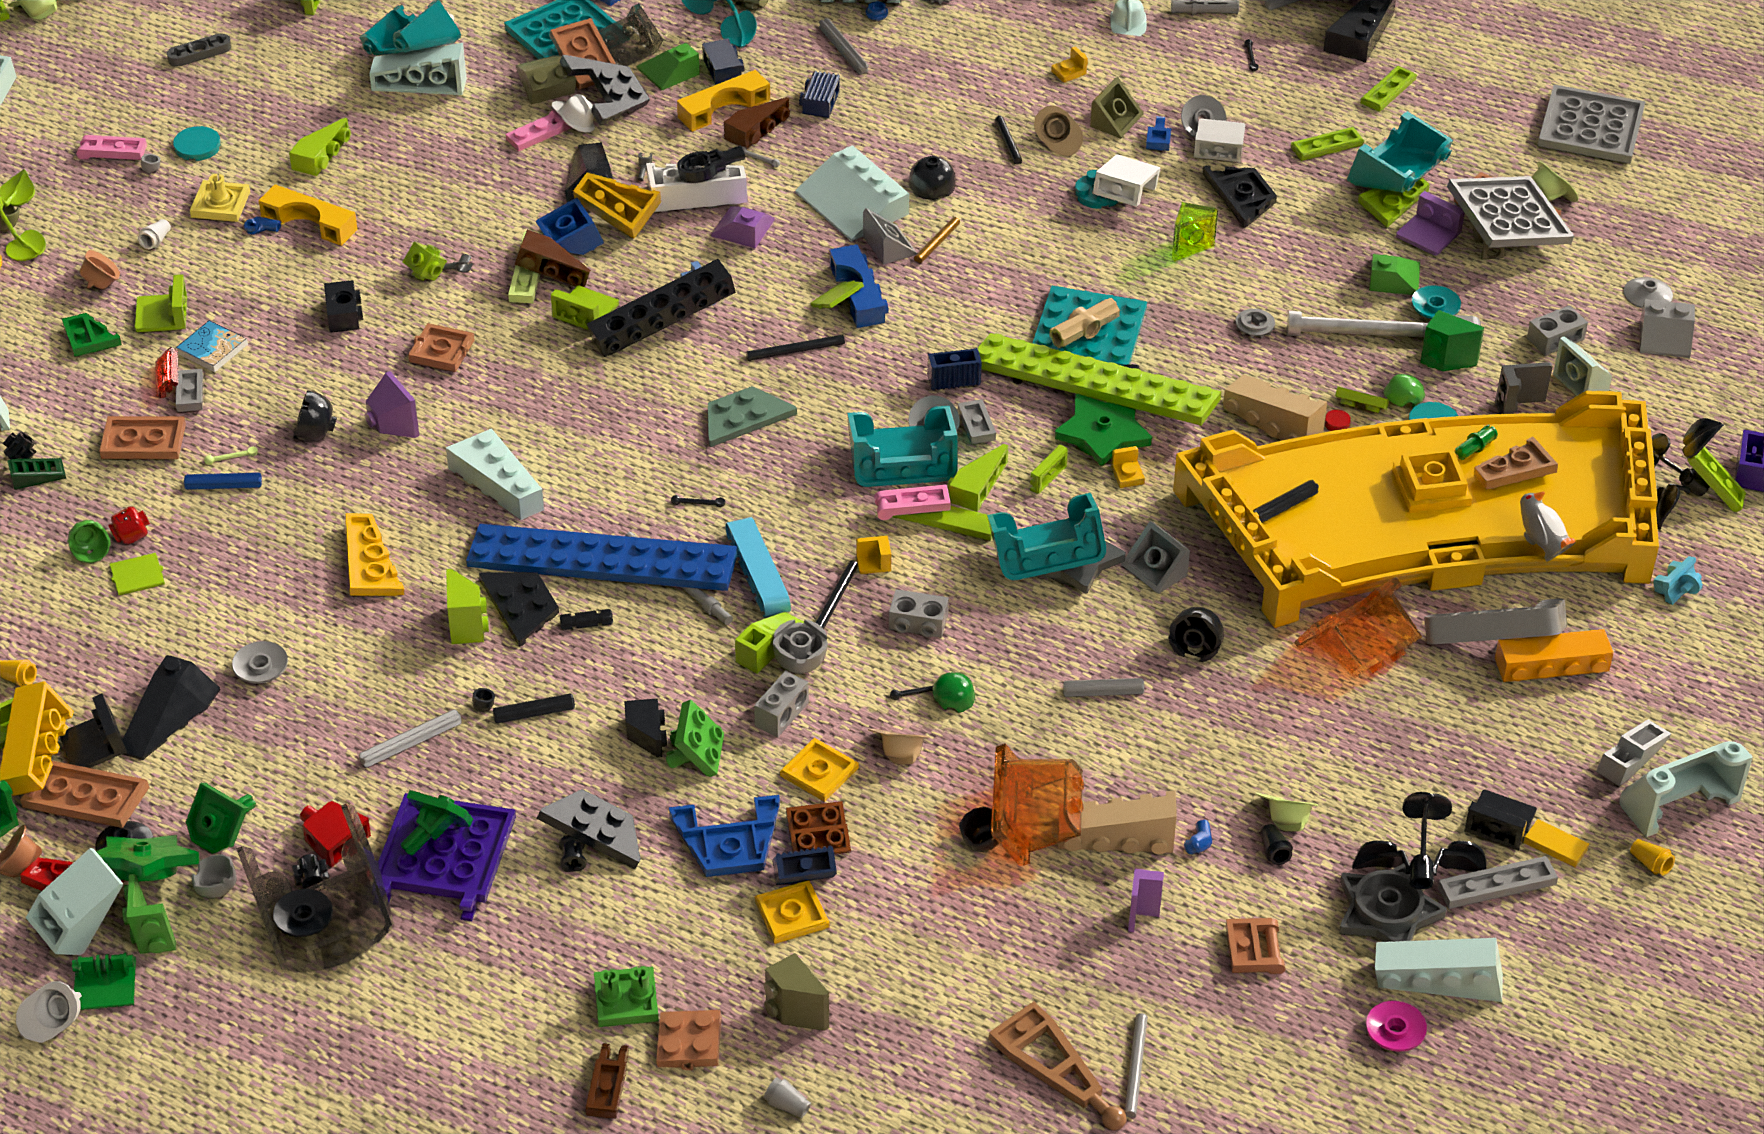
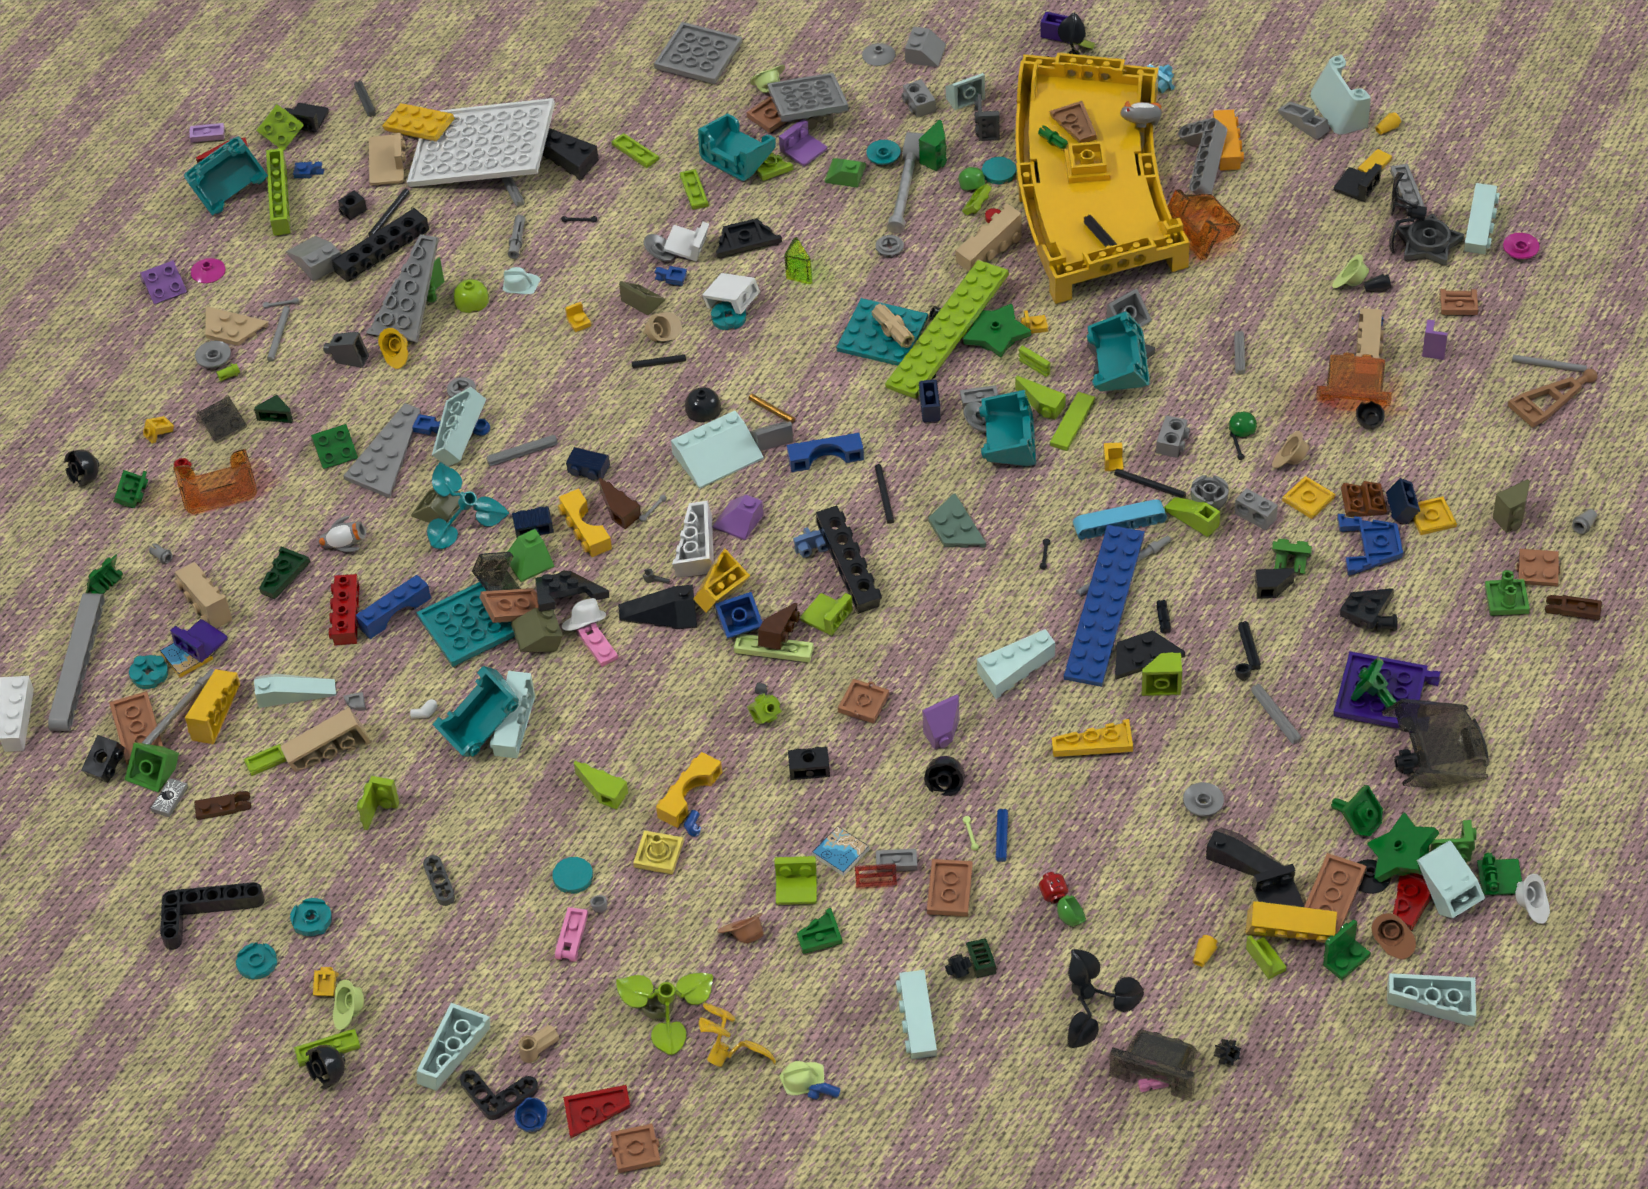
camera: 80 degrees left, 5 degrees up
(137, 574) = (1098, 885): lime piece -> none
(152, 235) = (696, 895): white cone -> none
(214, 876) = (1414, 809): light grey hair -> none
(301, 904) = (1448, 753): black dish -> none
(328, 830) = (1368, 751): red torso -> none
(713, 162) = (693, 516): black pin -> none
(836, 294) = (836, 462): lime piece -> none
(912, 501) = (1065, 430): bright pink plate -> none
(1195, 629) = (1198, 295): black cylinder -> none

